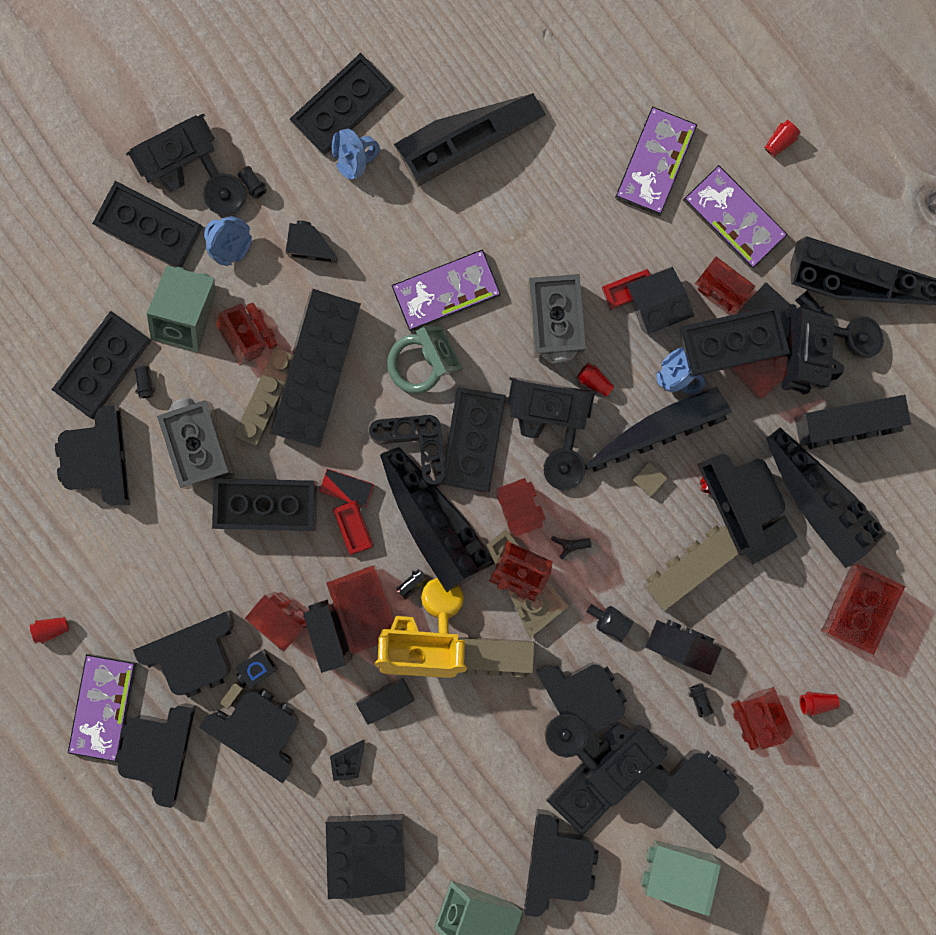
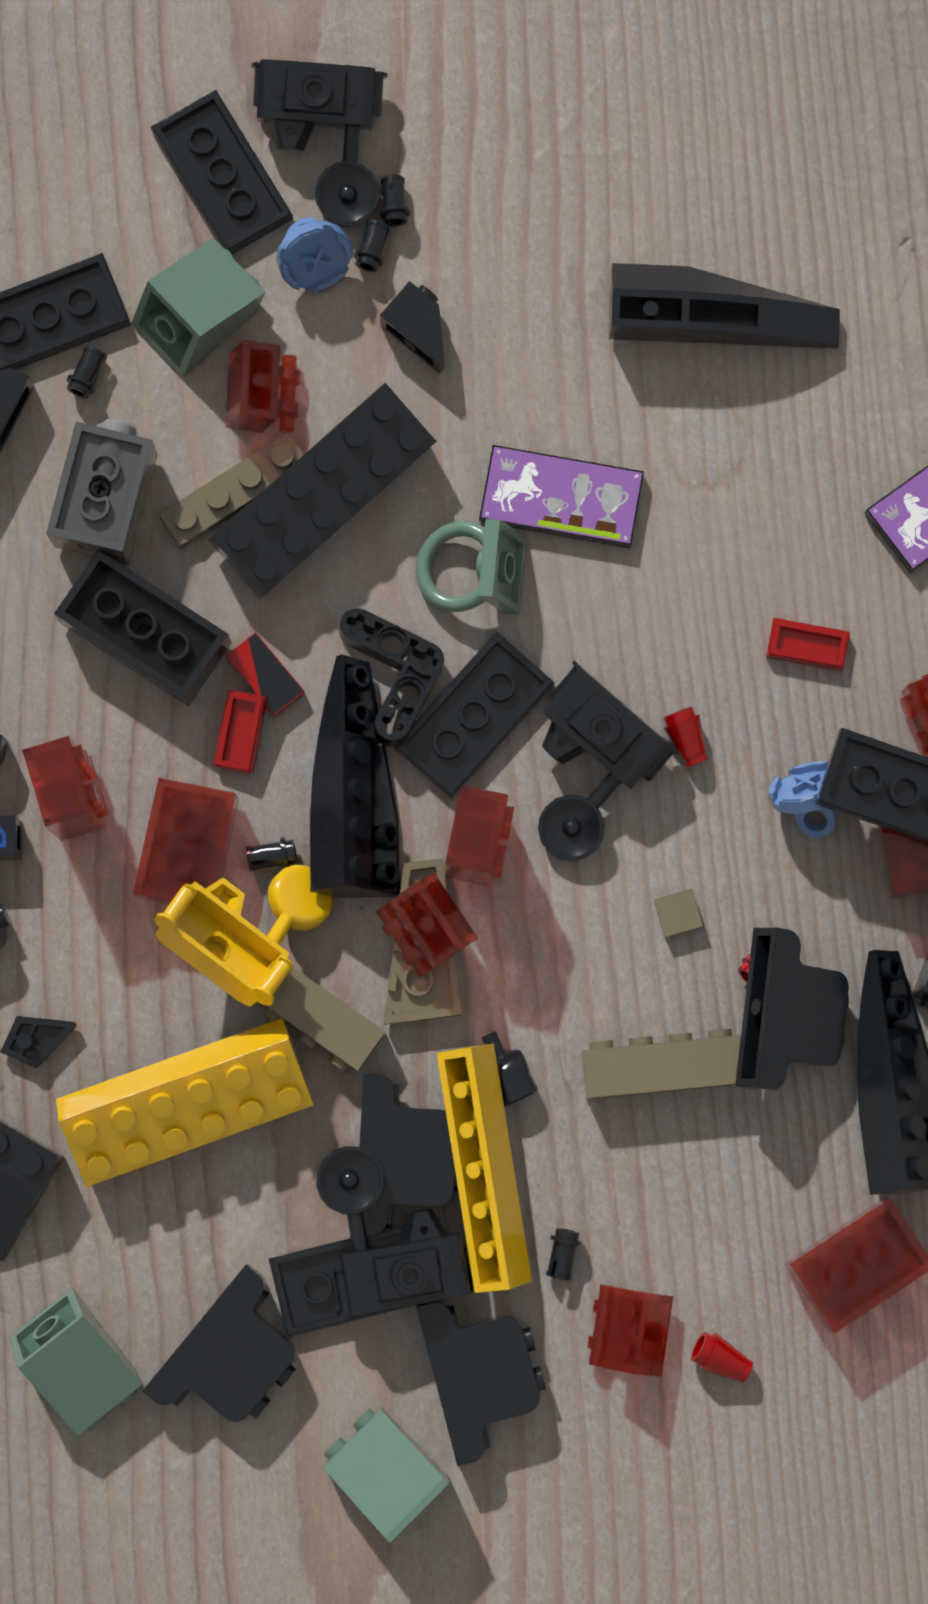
camera: 25 degrees right, 5 degrees down
(255, 212) = (371, 248): none -> black pin
(327, 636) = (115, 847): black window -> none
(342, 103) = (576, 171): black tile -> none
(350, 152) = (546, 240): medium blue tile -> none
(385, 702) = (137, 988): black slope -> none
(450, 748) = (183, 1102): none -> yellow brick
(556, 317) = (685, 618): dark grey piece -> none
(571, 545) = (517, 937): black bar -> none
(632, 682) = (484, 1168): none -> yellow brick
(659, 300) = (838, 681): black slope -> none
(663, 425) = (740, 853): black wedge -> none
(686, 647) = (585, 1164): black brick -> none
(778, 535) = (799, 1095): black slope -> none

